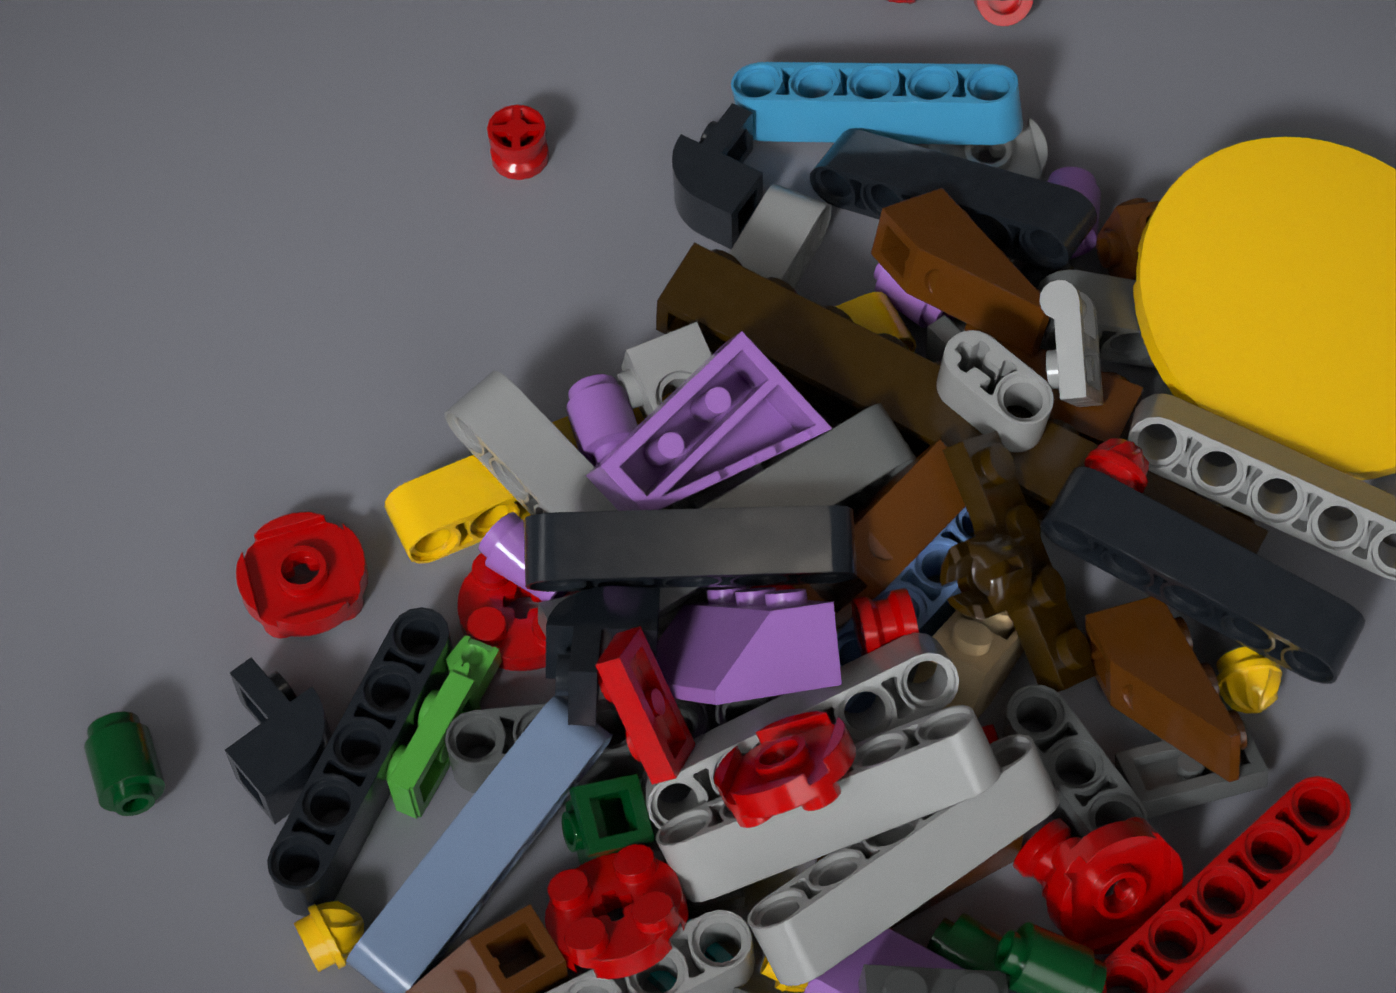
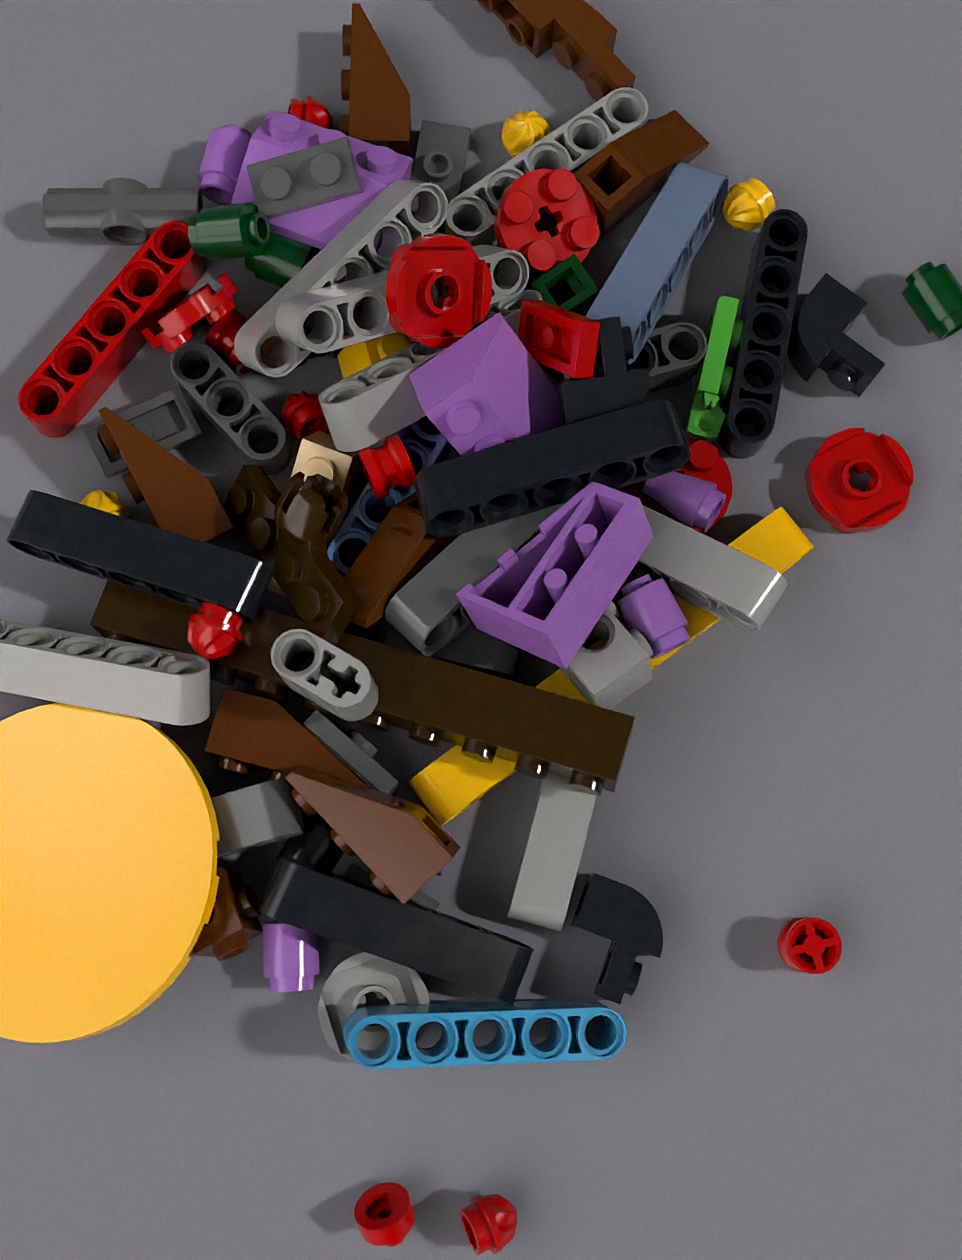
camera: 160 degrees right, 20 degrees up
(1075, 362) = (260, 725): light grey plate -> none

